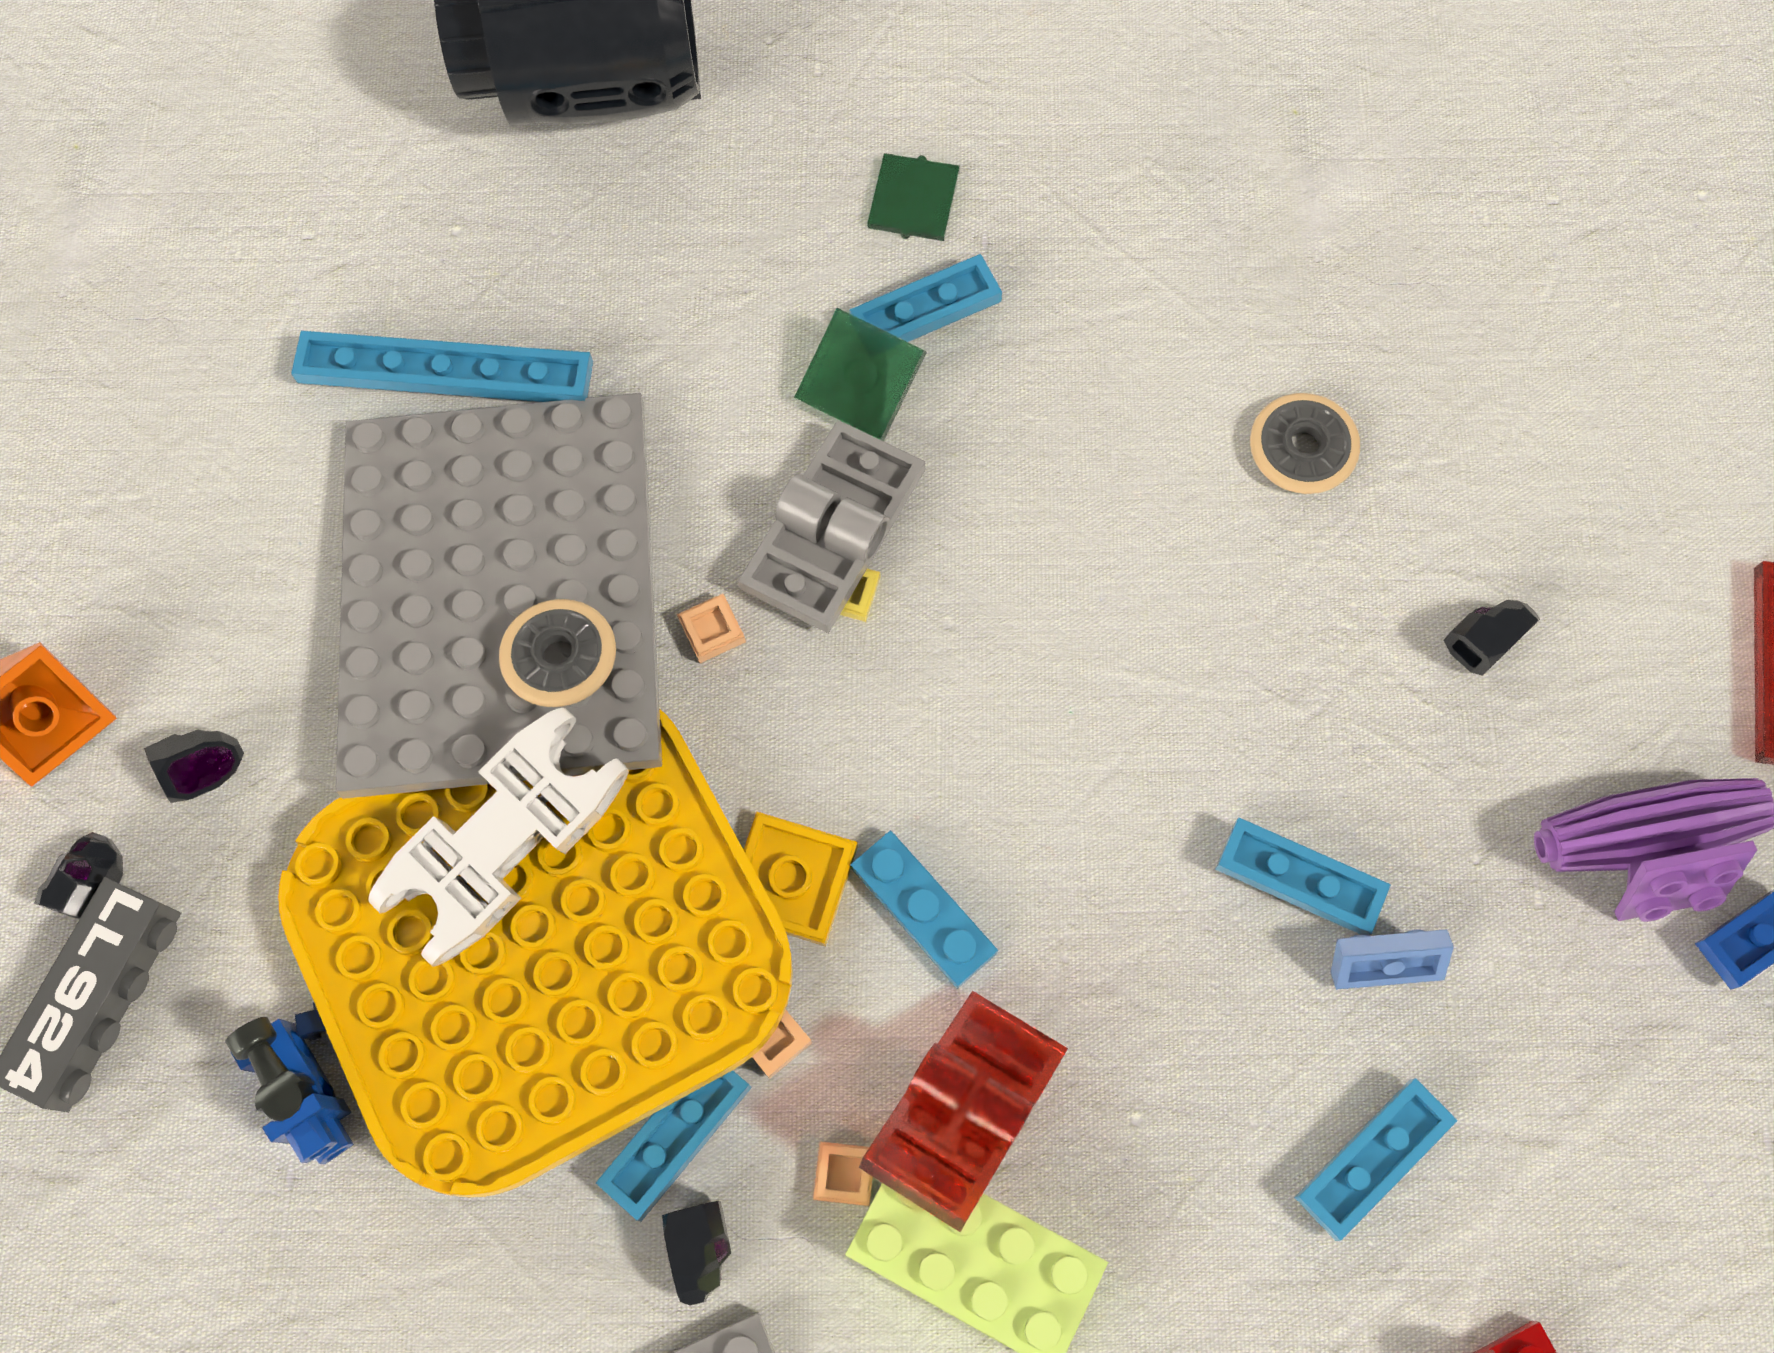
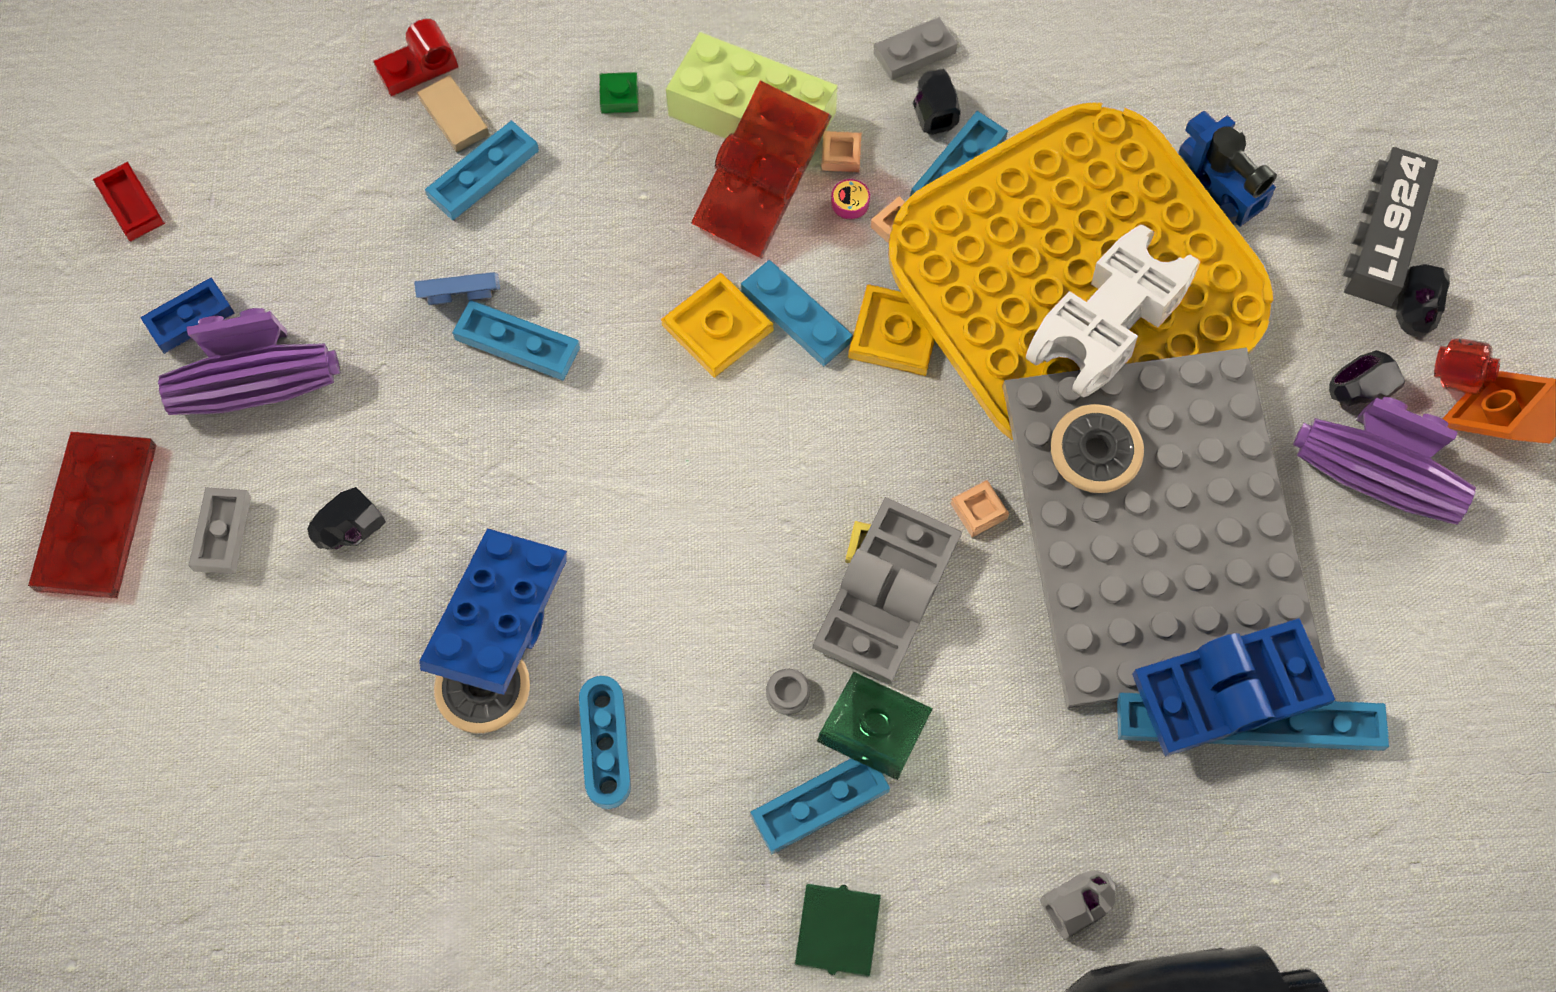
camera: 175 degrees right, 5 degrees down
(58, 770) = (1466, 365): none -> clear red head
(193, 649) = (1390, 459): none -> medium lavender plate
(454, 380) = (1232, 686): none -> blue plate
(663, 203) = (1079, 902): none -> light grey rock
(837, 1087) = (850, 199): none -> tile
(955, 426) = (788, 691): none -> light grey tile
(1031, 896) = (717, 325): none -> yellow tile
(1165, 358) = (599, 724): none -> dark azure plate
(1178, 1302) = (619, 92): none -> green plate
(1299, 509) = (494, 612): none -> blue plate
(1431, 1274) = (453, 113): none -> tan tile
(1648, 632) = (220, 530): none -> light grey plate

